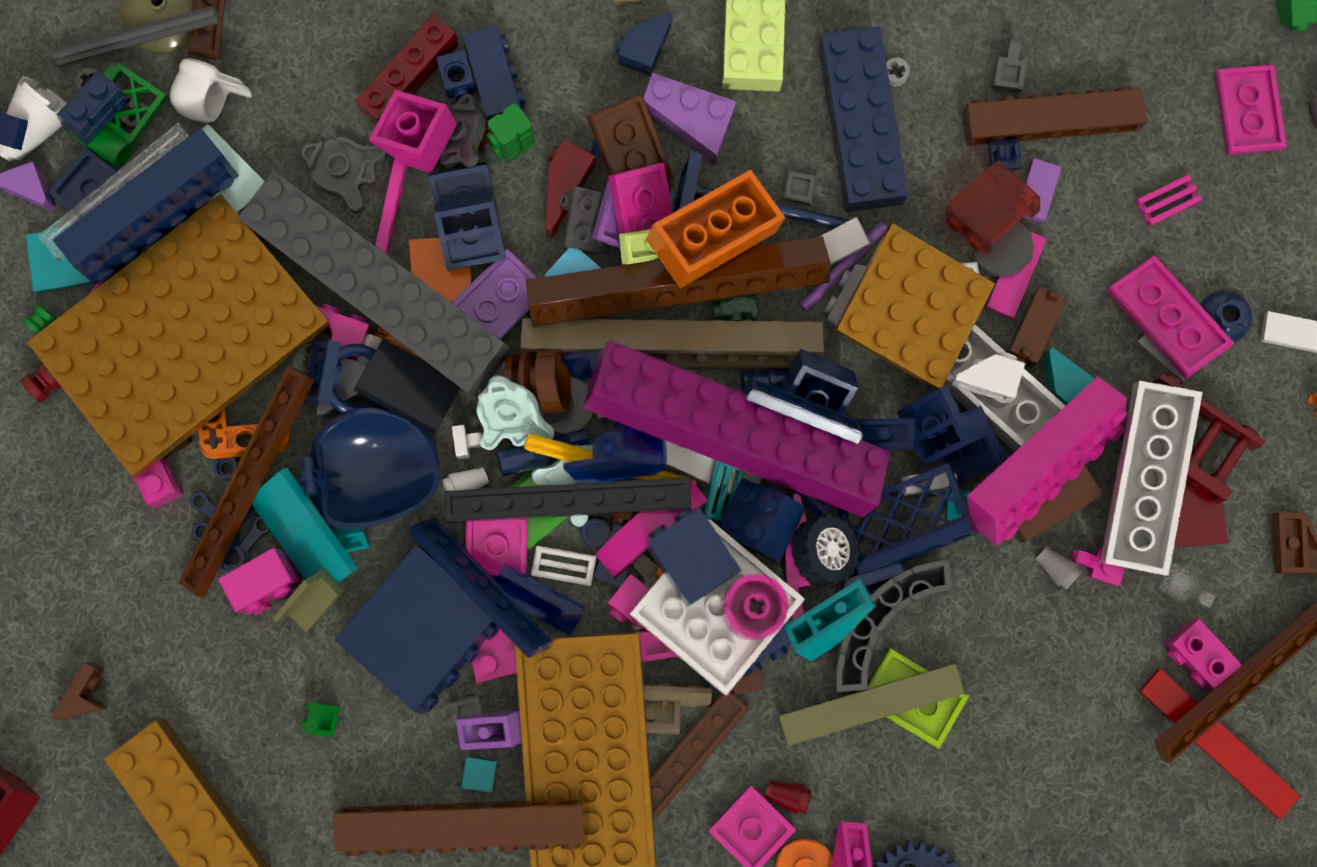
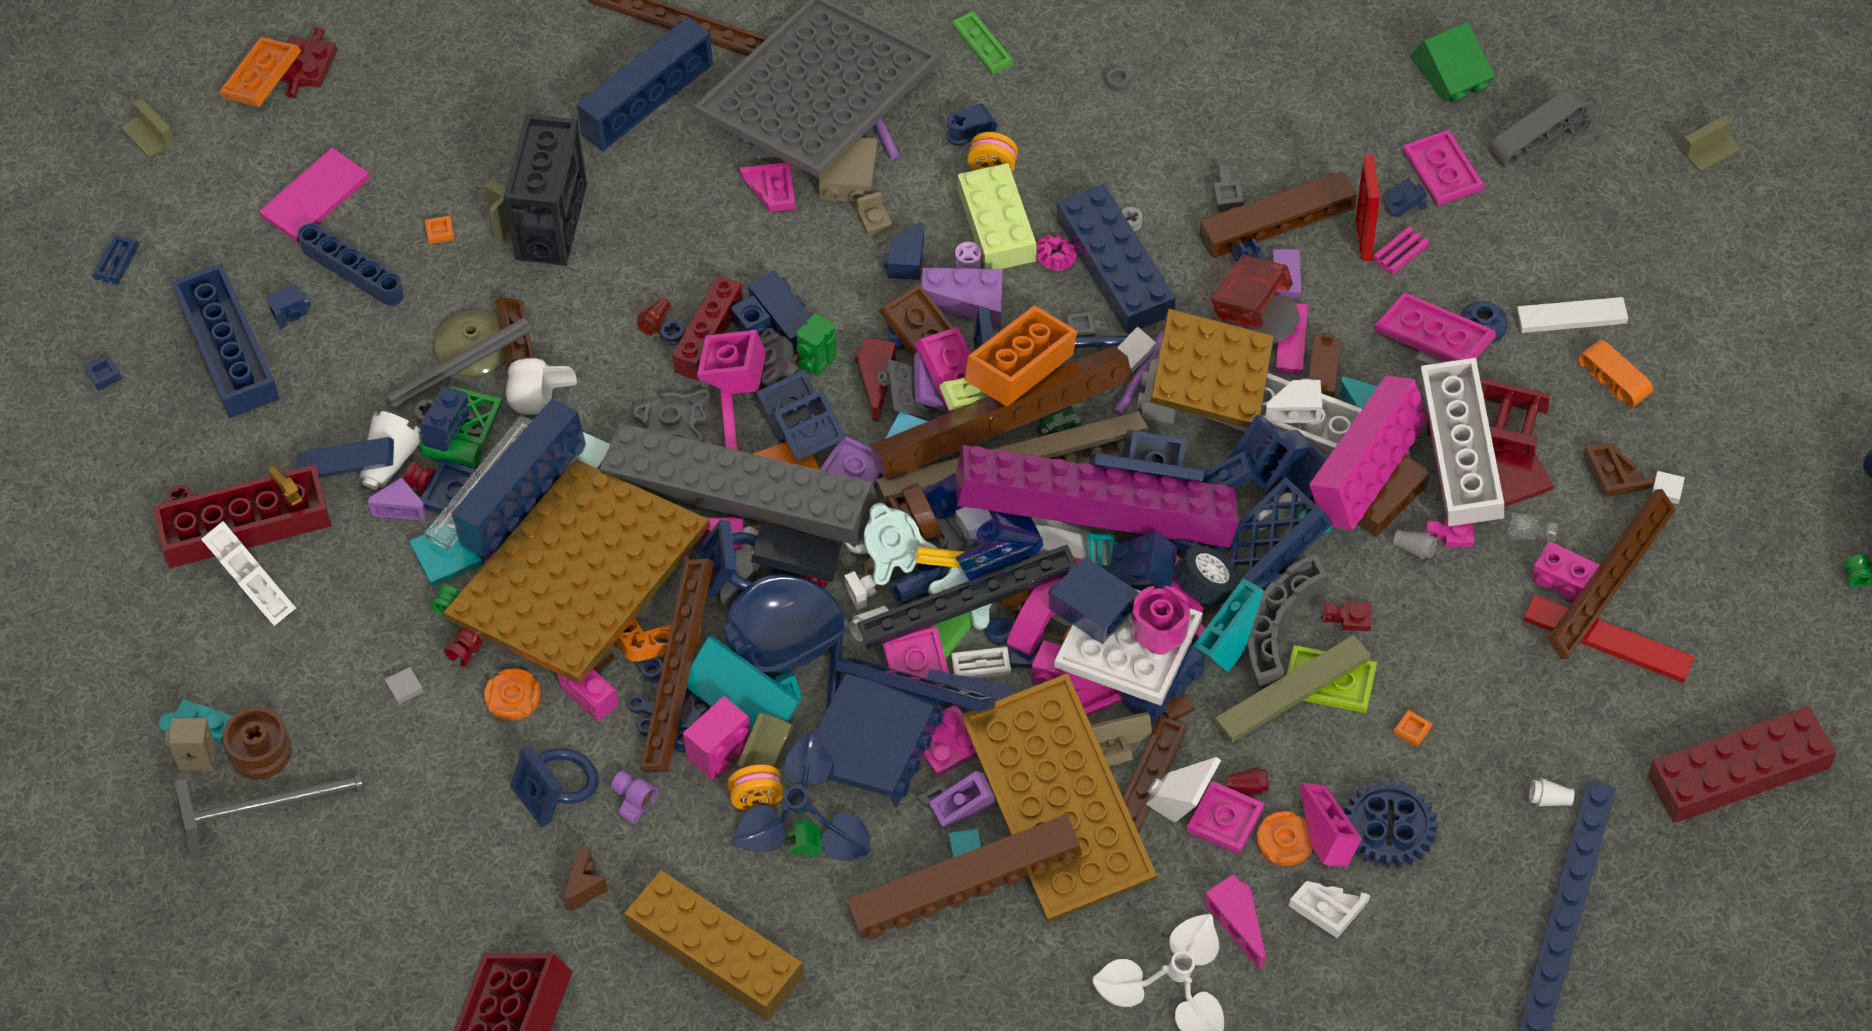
camera: 10 degrees left, 25 degrees down
(55, 160) = (418, 477): none -> dark red wheel
(67, 574) = (539, 787): none -> dark blue tile
(87, 456) = (512, 704): none -> orange tile
(165, 610) = (636, 794): none -> medium lavender piece
(284, 649) = (755, 786): none -> light orange head
(342, 645) = (804, 764): none -> dark blue plant
(357, 38) = (653, 317): none -> clear red cone
(368, 54) = (666, 328): none -> dark blue bush
(407, 539) = (834, 675): none -> dark blue bar
(710, 62) = (968, 250): none -> lavender wheel
(719, 792) = (1181, 789): none -> white slope
(802, 102) = (1057, 261): none -> dark pink gear
(963, 631) = (1352, 615): none -> dark red plate
(978, 784) = (1412, 728): none -> orange tile
(1152, 155) = (1367, 208): none -> red tile
(1196, 137) = (1405, 197): none -> dark blue bracket

